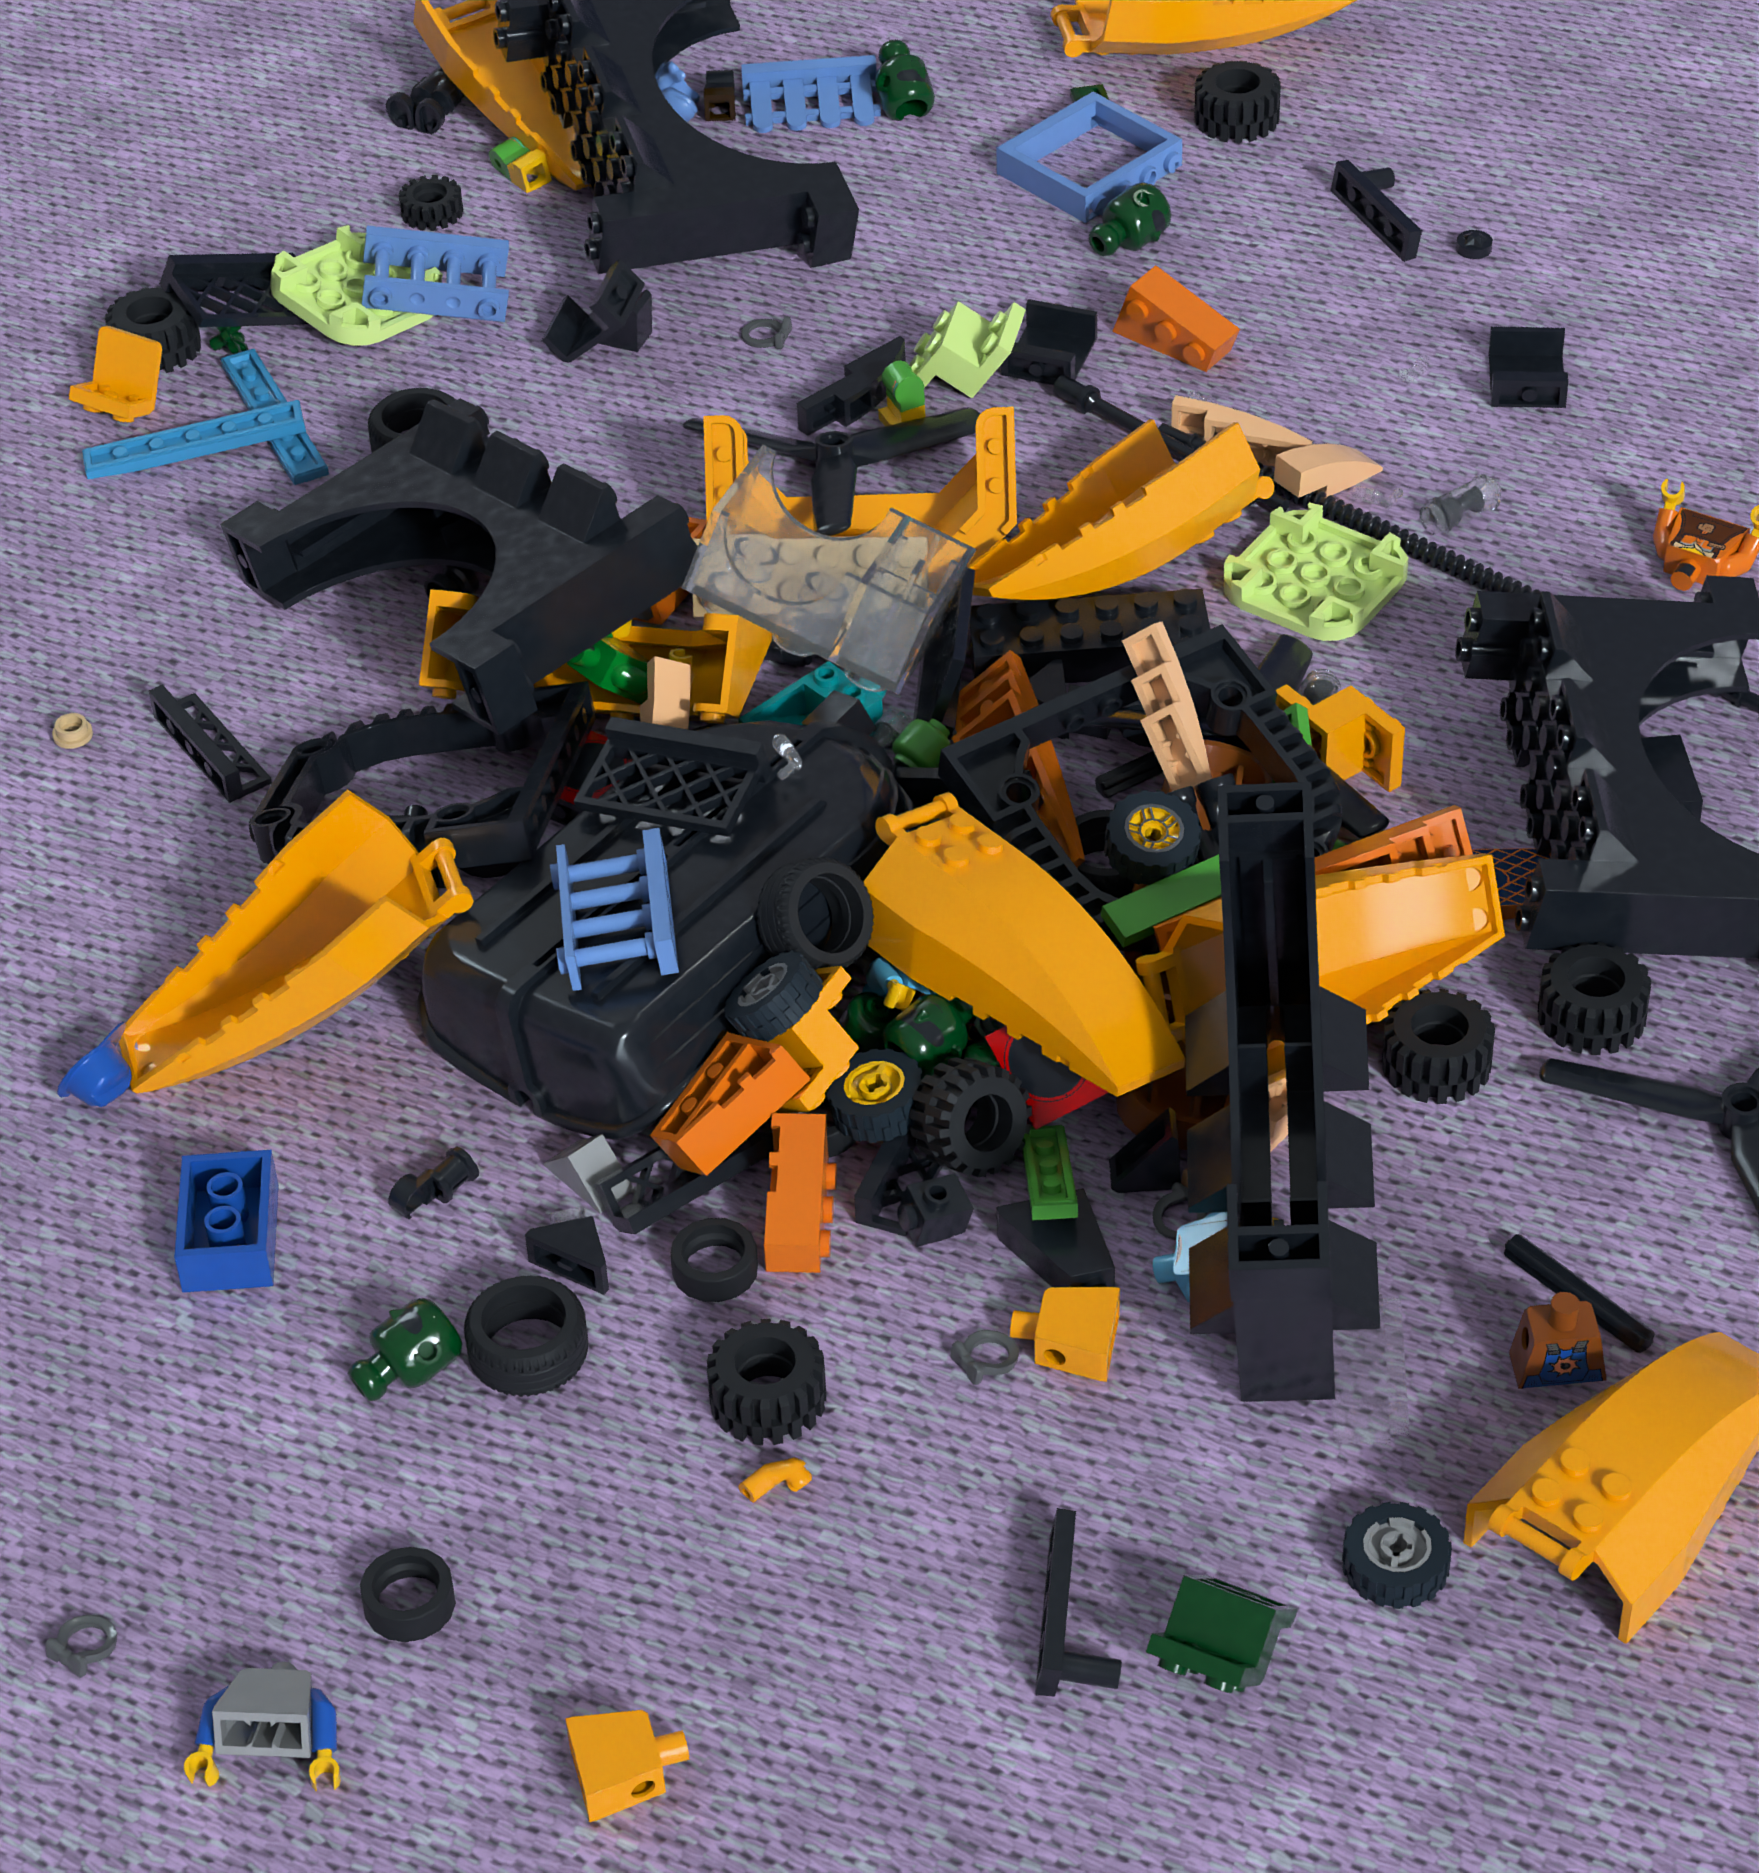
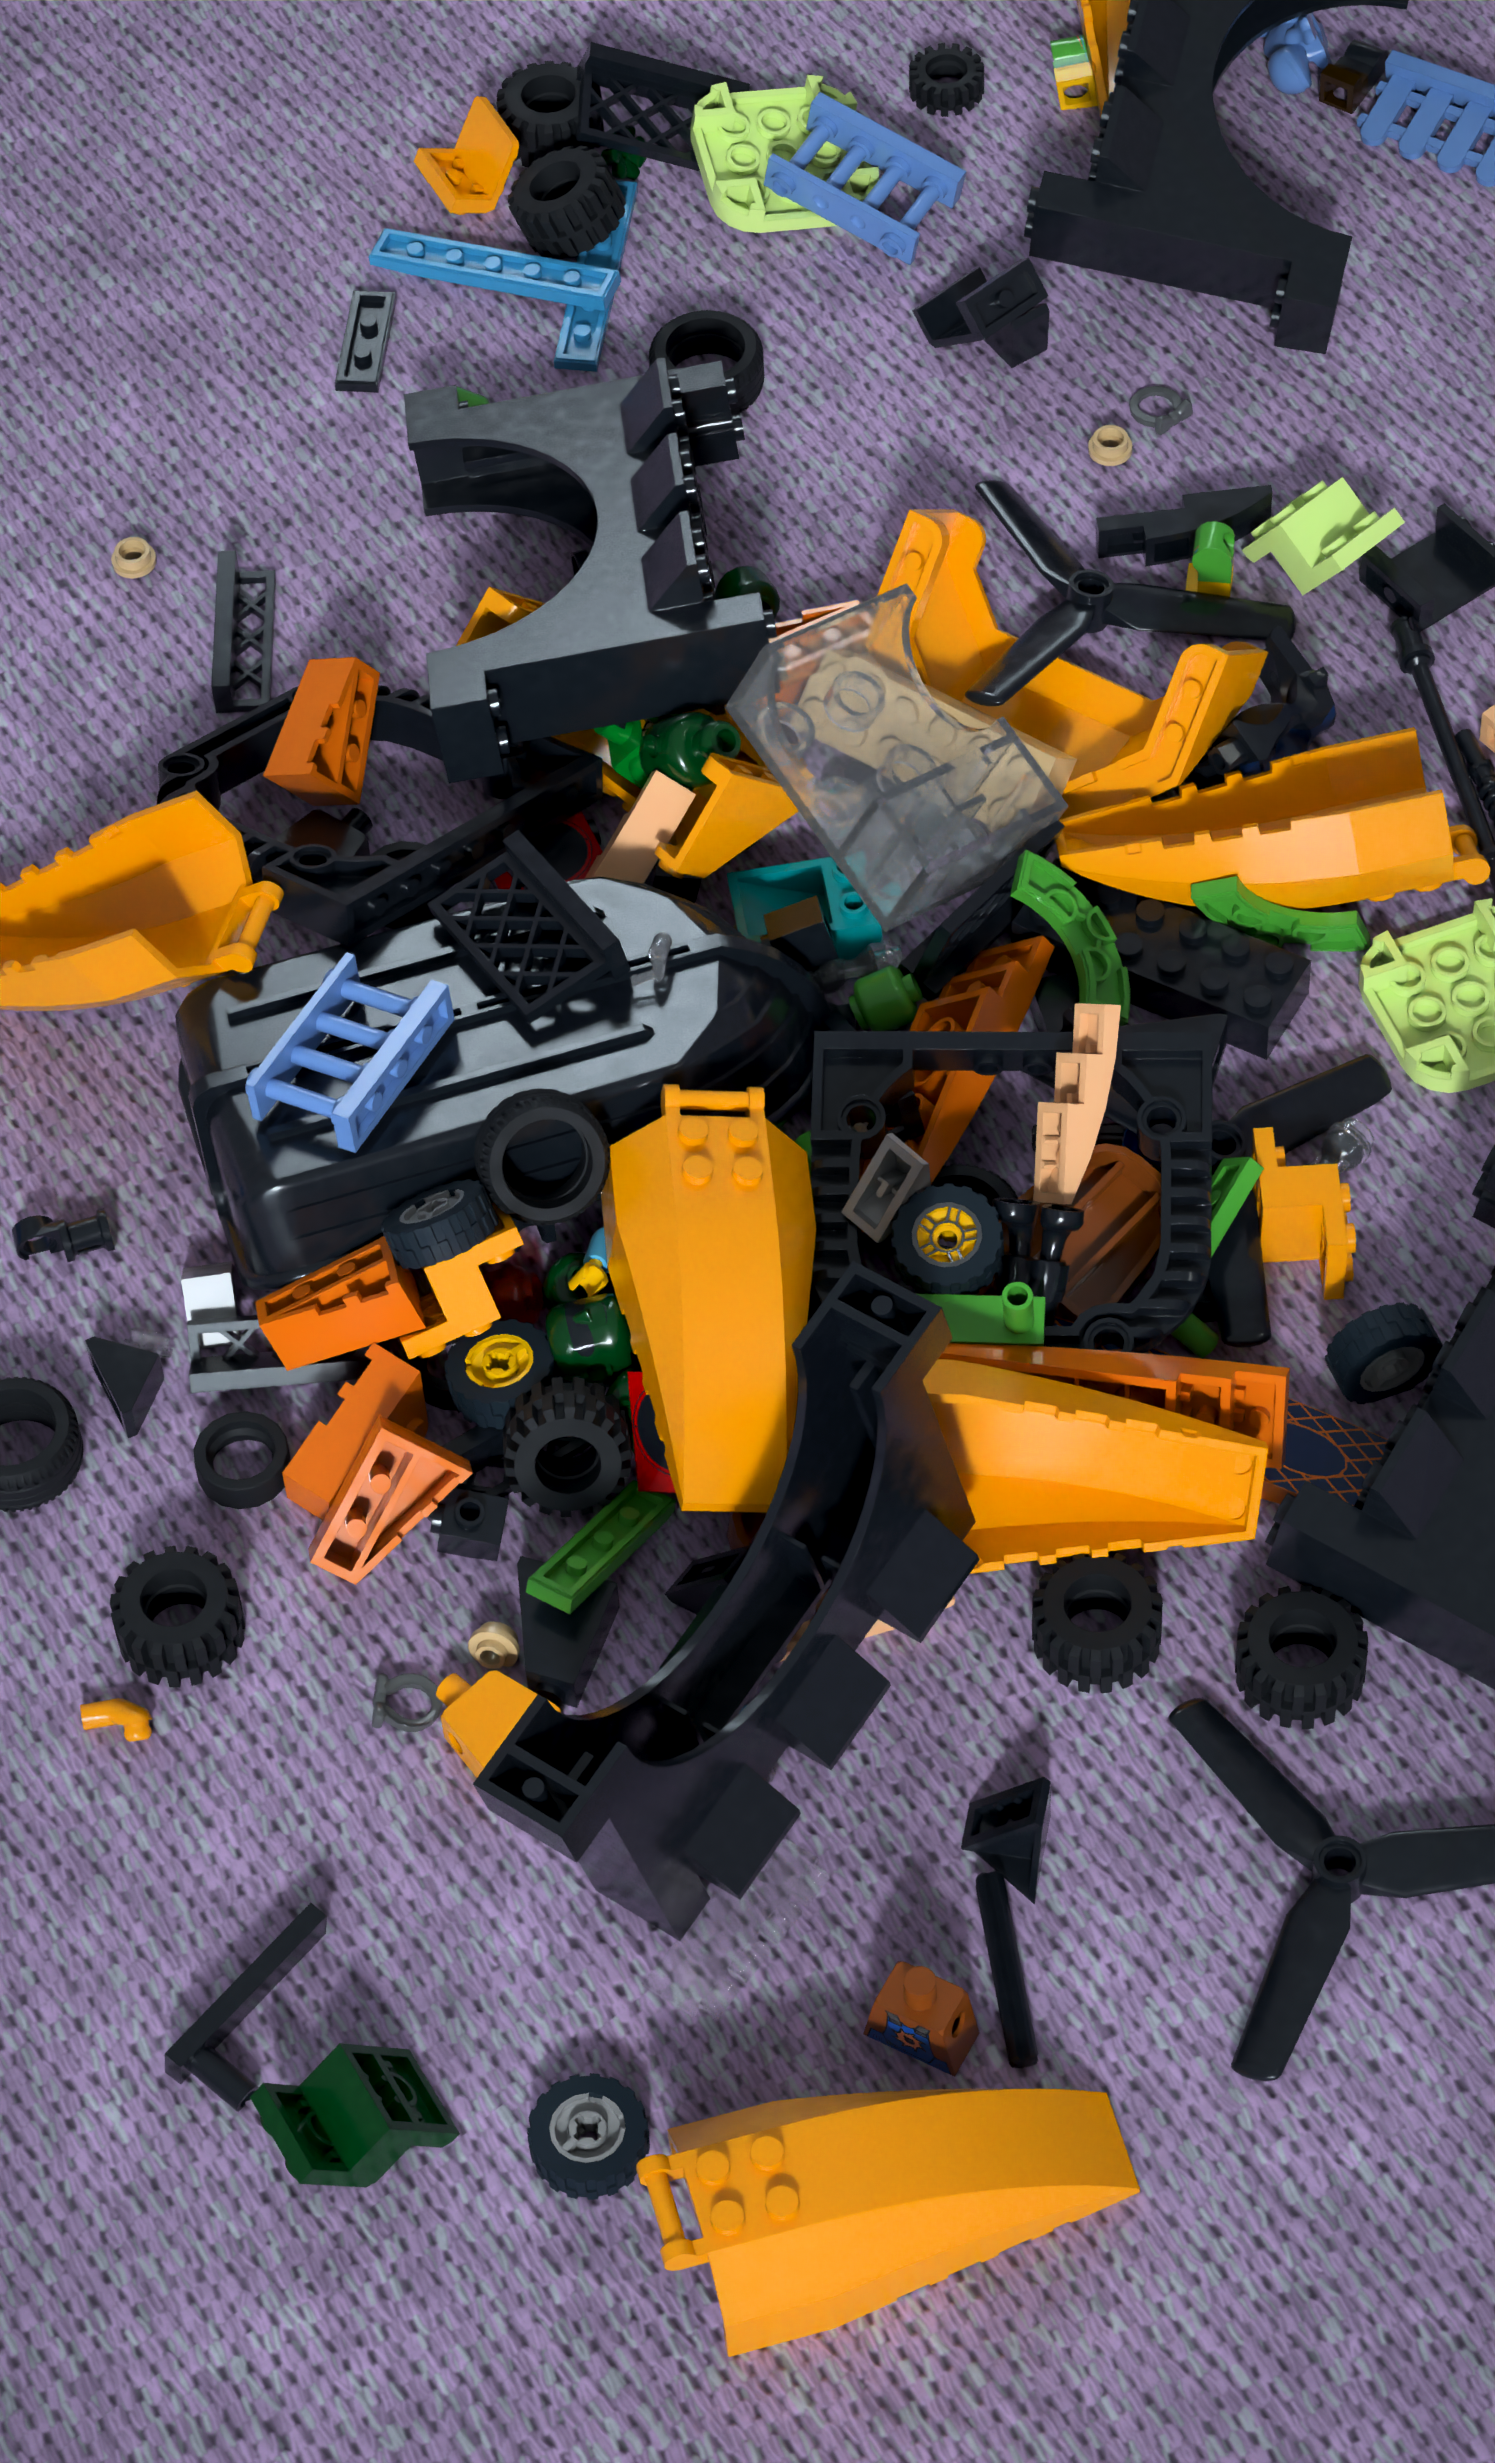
camera: 35 degrees right, 10 degrees up
(131, 525) = (365, 341): none -> tile
(220, 372) = (566, 202): none -> black tyre
(361, 750) = (327, 733): none -> orange wedge
(665, 632) = (682, 745): none -> dark green piece
(755, 365) = (1107, 436): none -> tan plate
(864, 1216) = (383, 1497): none -> orange wedge
(1020, 1273) = (494, 1645): none -> tan plate
(1039, 463) = (1286, 726): none -> black hips
(1041, 630) = (1079, 926): none -> bright green tile
(1085, 818) = (885, 1186): none -> light grey slope
(1124, 576) = (1233, 904): none -> bright green tile
(1479, 787) = (1383, 1353): none -> black wheel
(1506, 1202) = (1012, 1832): none -> black slope

